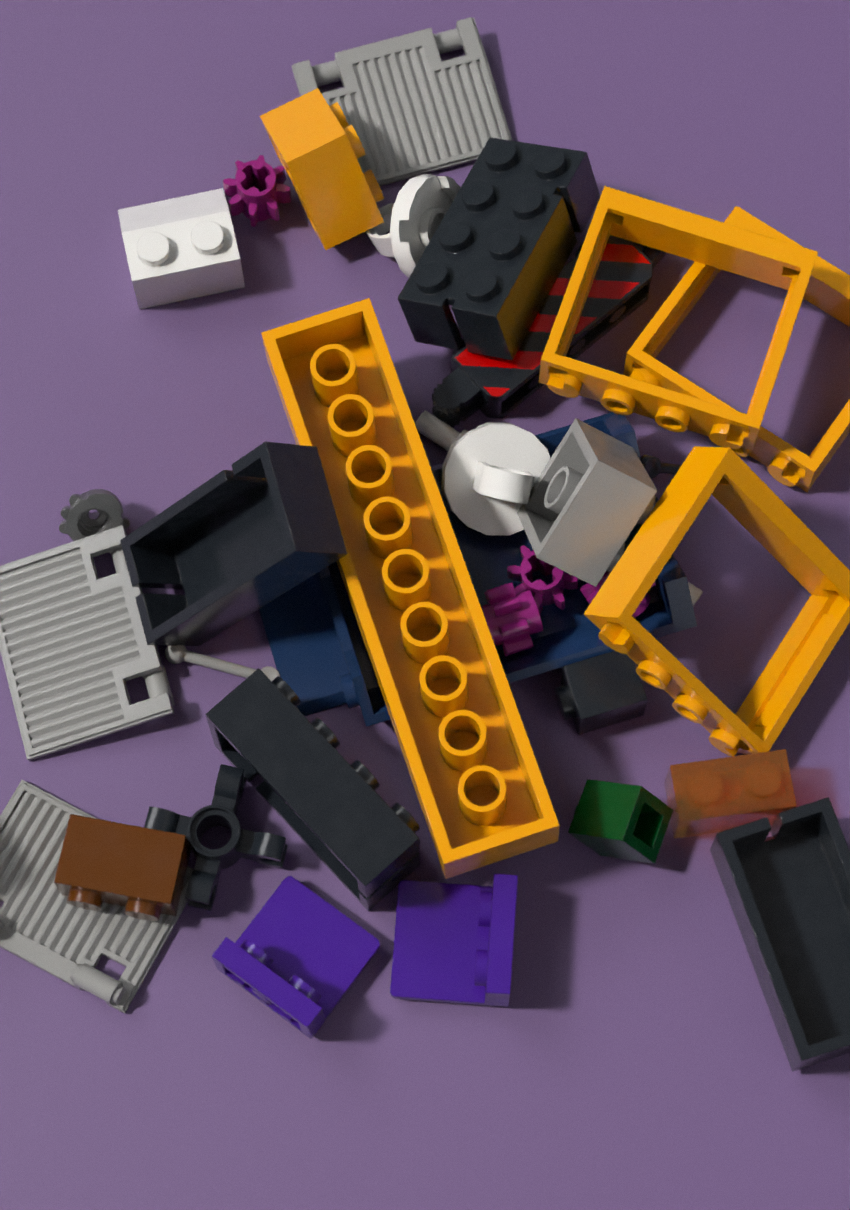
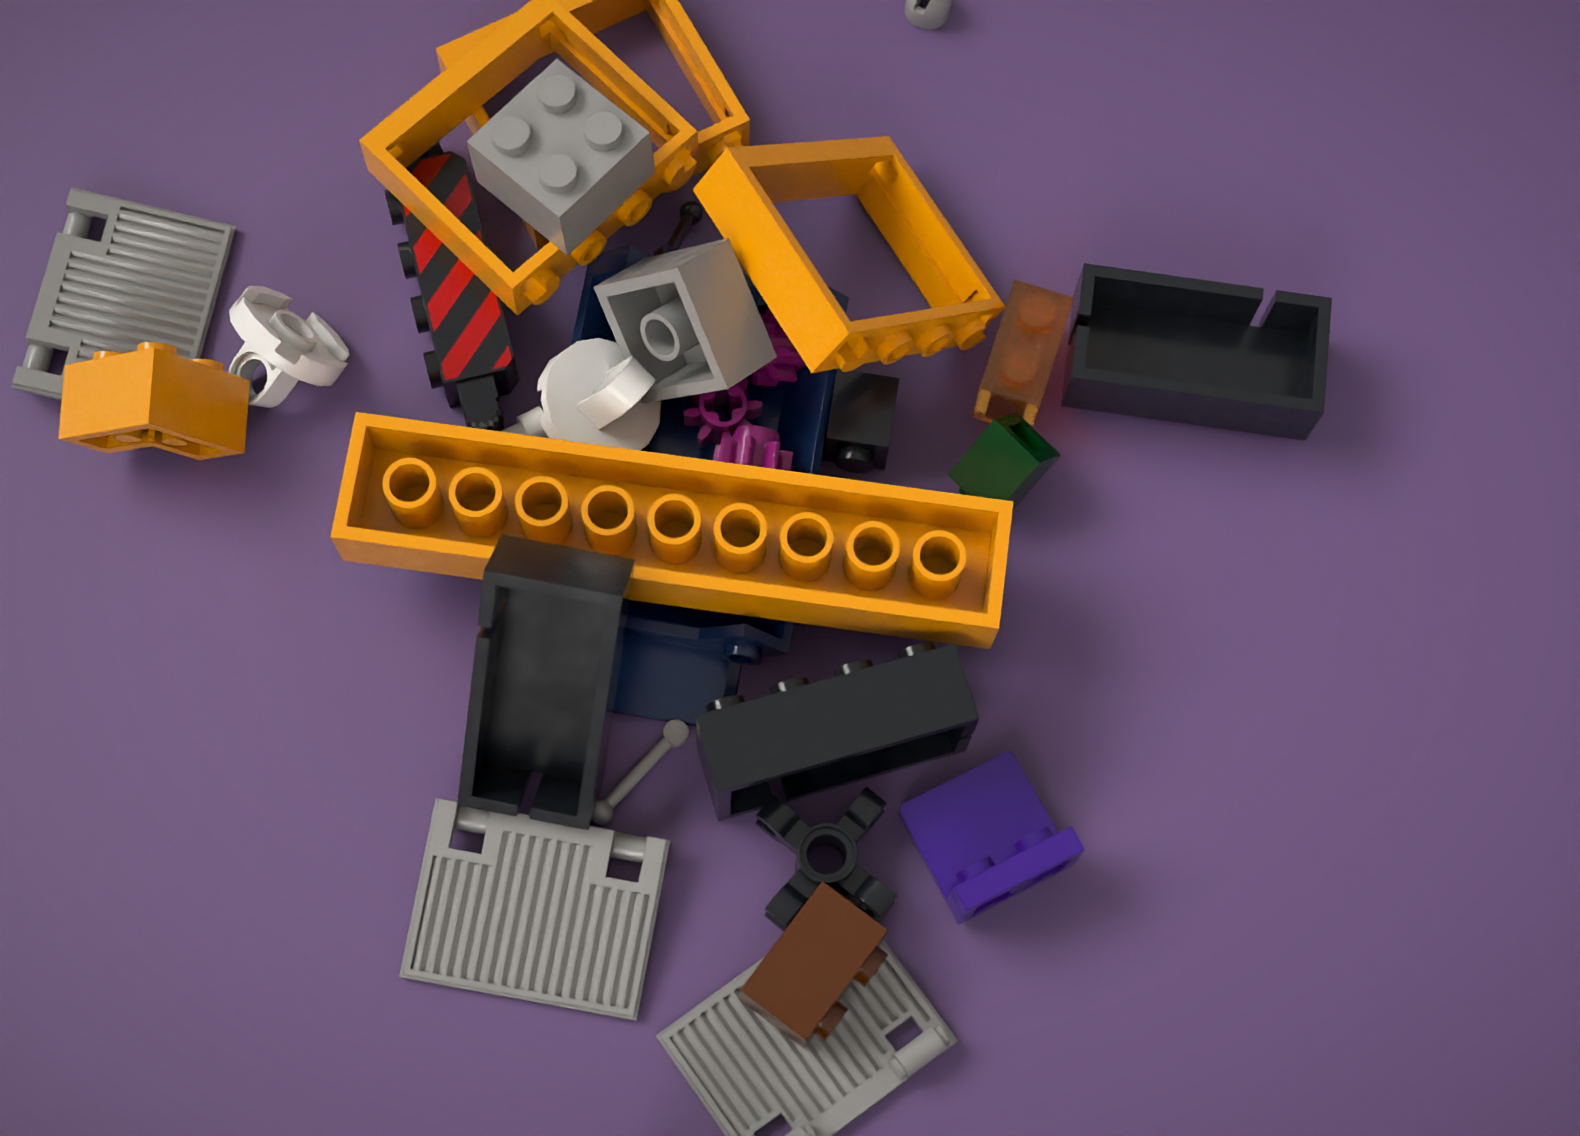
camera: 70 degrees left, 0 degrees up
(81, 523) = (406, 824): flat silver animal -> none
(181, 248) = (148, 594): white slope -> none
(257, 190) = (118, 488): magenta gear -> none
(454, 942) = (1048, 672): dark purple bracket -> none
(500, 247) = (353, 277): black piece -> none
(663, 334) = (562, 156): none -> light grey brick

